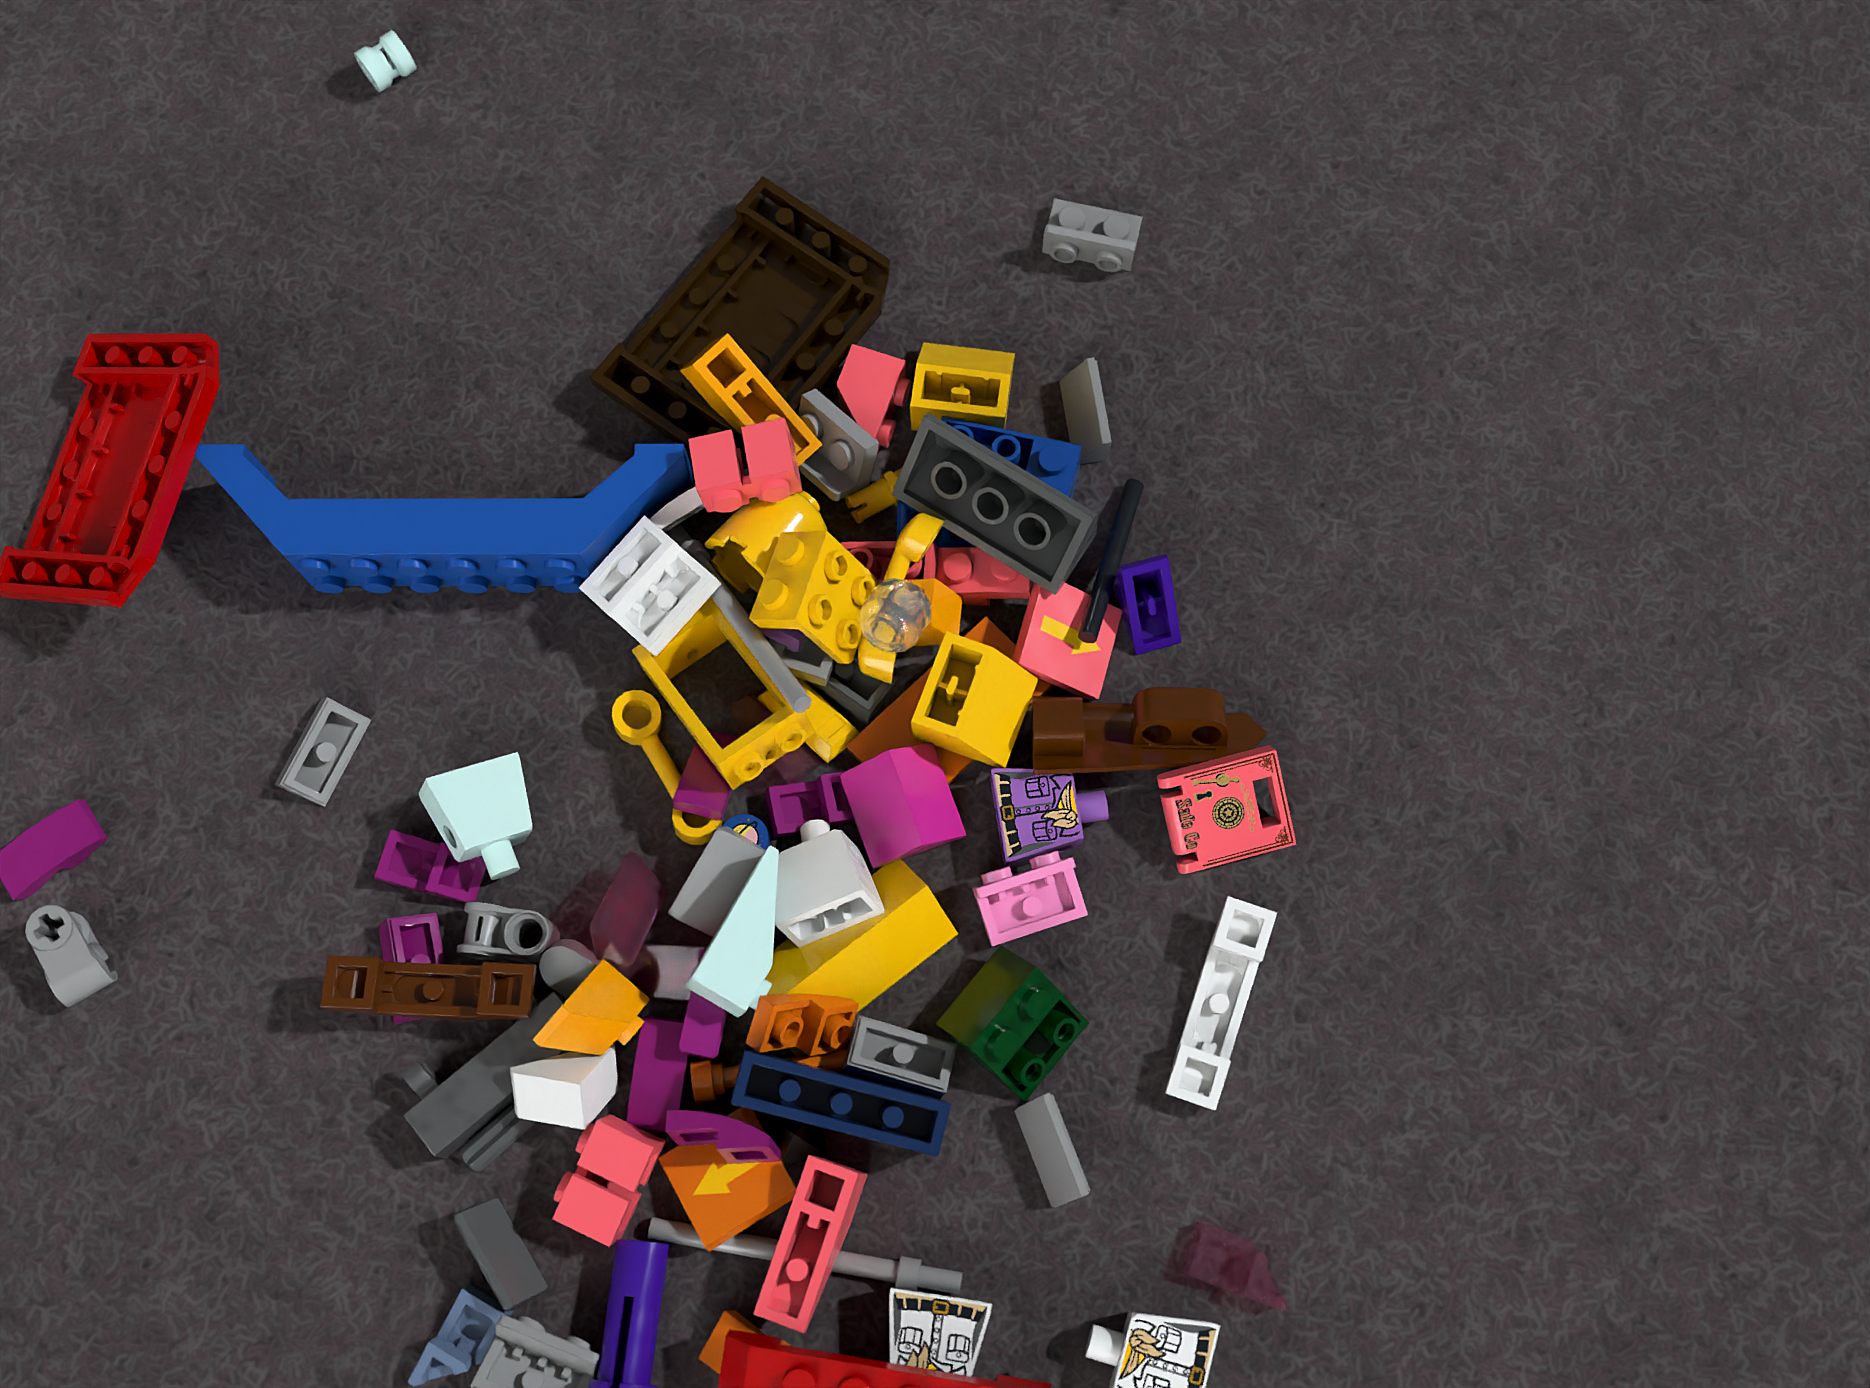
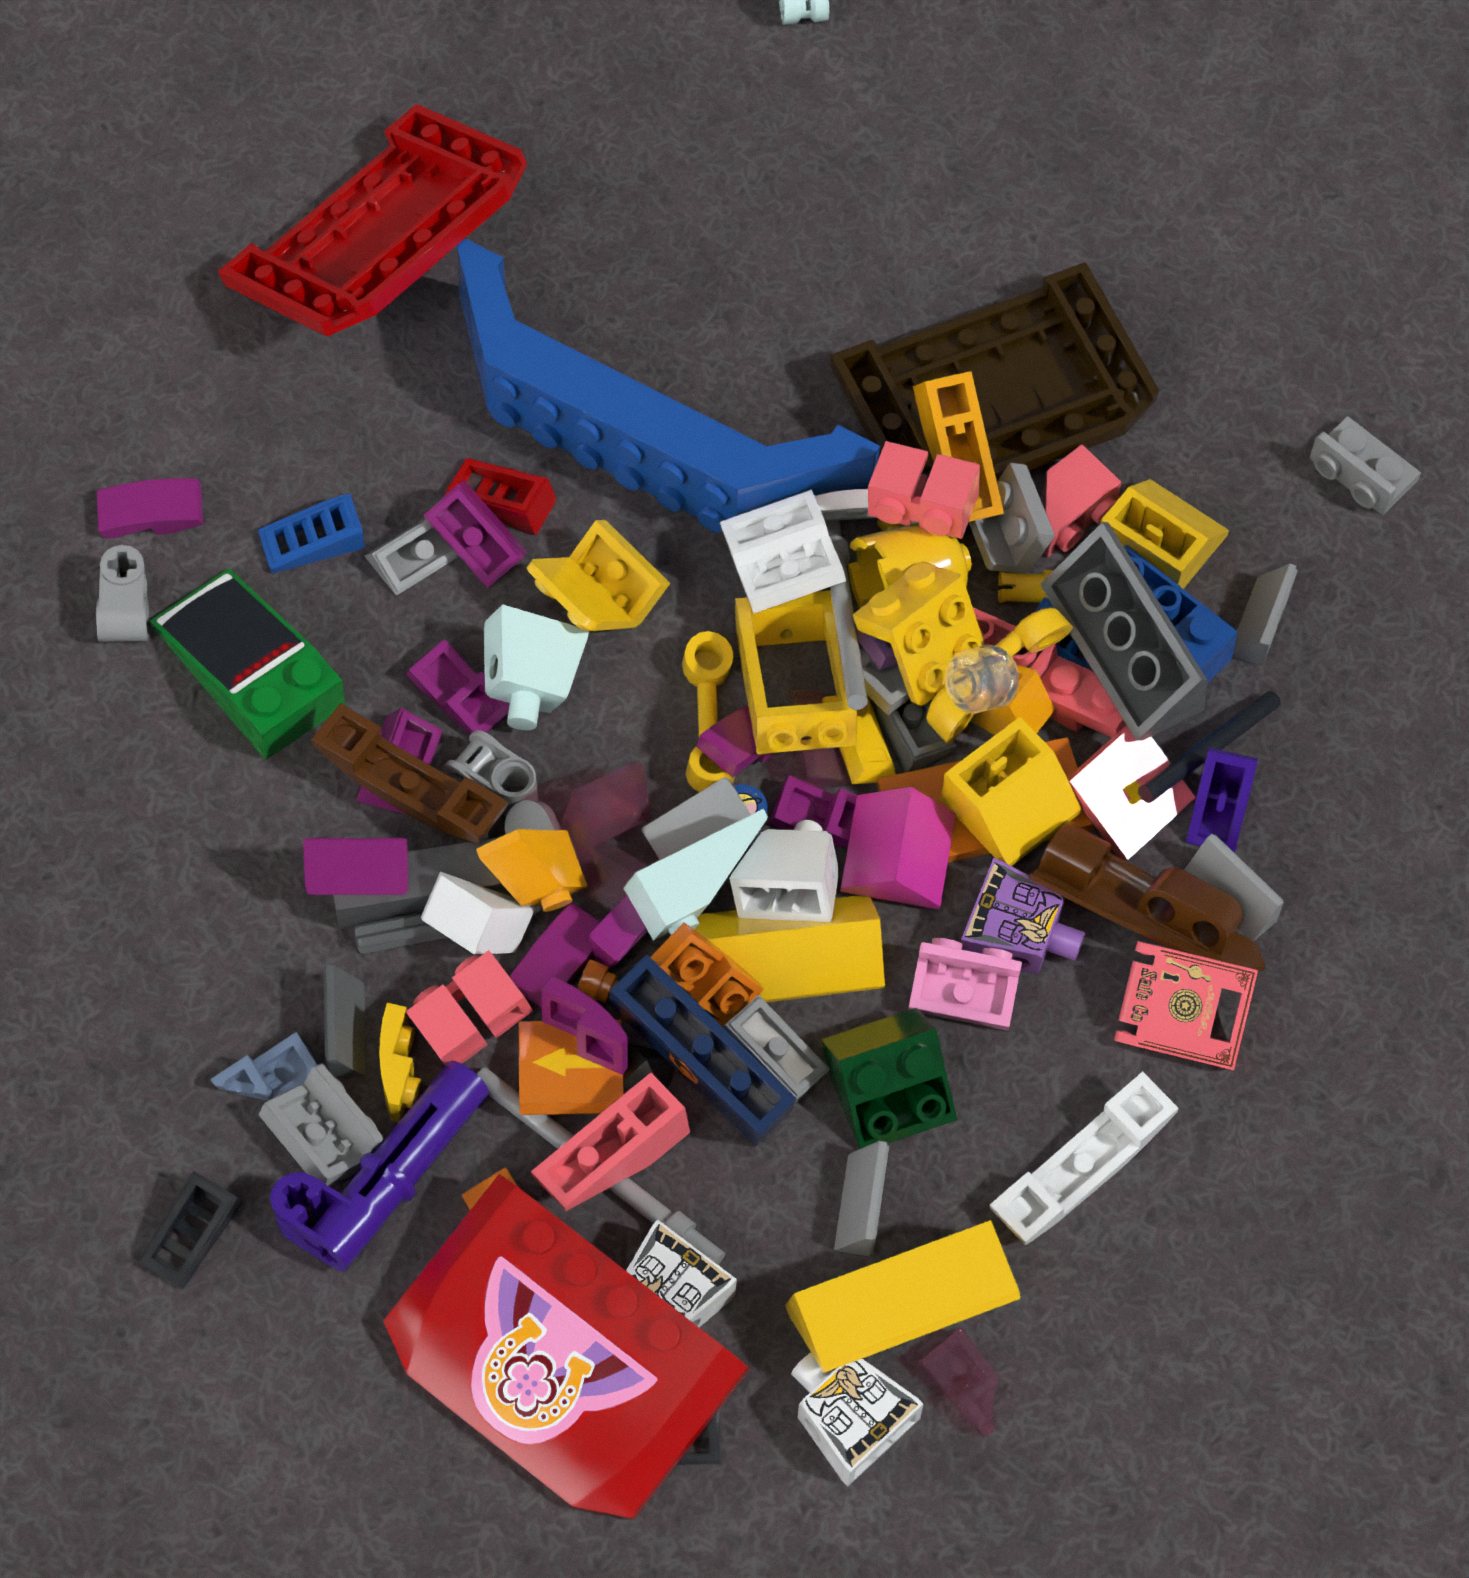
camera: 25 degrees right, 10 degrees down
(222, 948) = (251, 662): none -> slope
(239, 791) = (331, 545): none -> blue slope
(364, 712) = (475, 534): none -> magenta slope
(397, 664) = (528, 507): none -> red slope
(429, 1109) = (356, 866): none -> magenta slope
(502, 700) = (601, 582): none -> yellow bracket
(577, 1282) = (397, 1069): none -> yellow slope
(1144, 1231) = (904, 1297): none -> yellow slope
(1194, 669) = (1226, 871): none -> light grey slope

